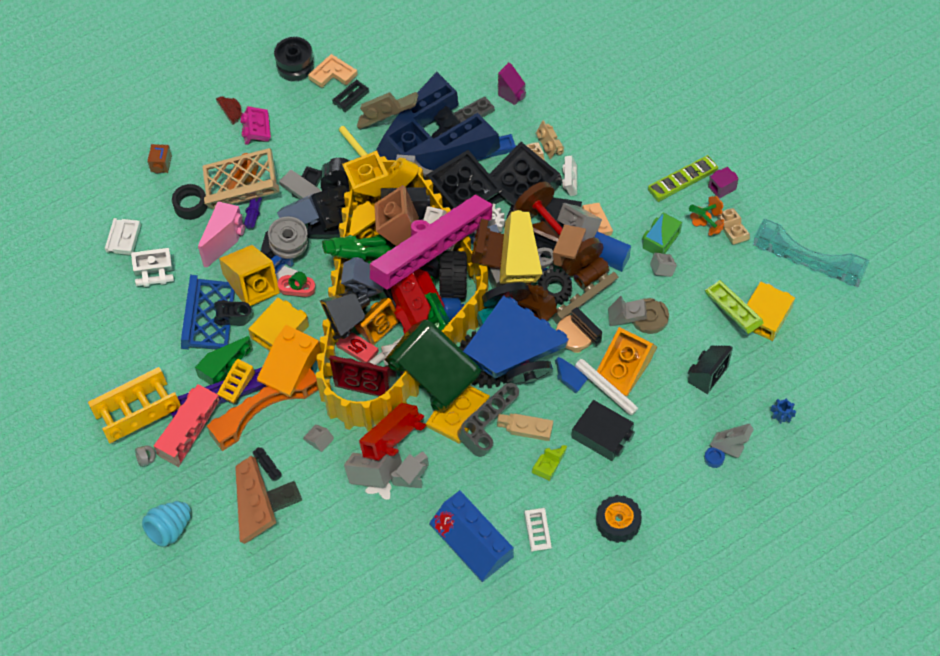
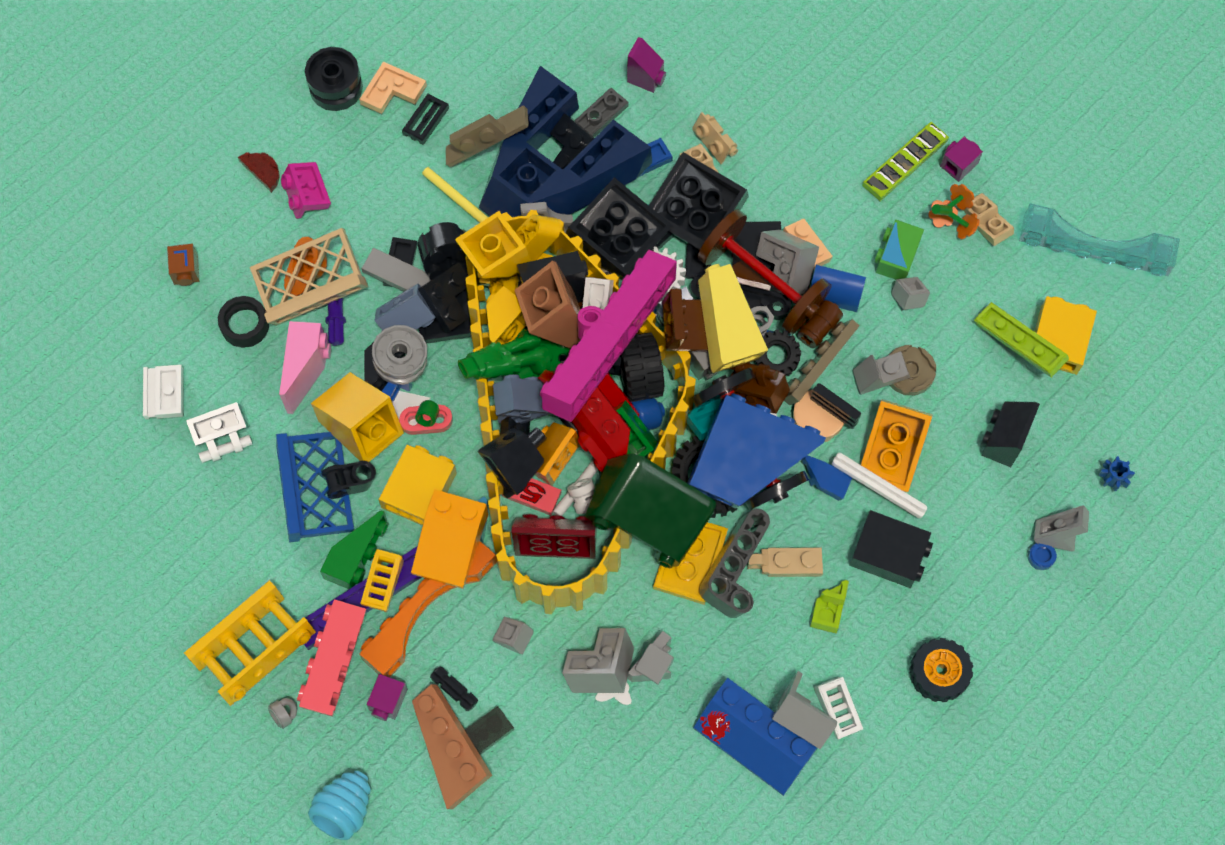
camera: 15 degrees left, 10 degrees up
(218, 459) = (386, 698): none -> magenta brick
(391, 431) = (613, 611): red brick -> none
(505, 524) = (801, 717): none -> light grey panel
(568, 243) = (790, 296): medium nougat panel -> none
(570, 173) = (753, 177): white plate -> none

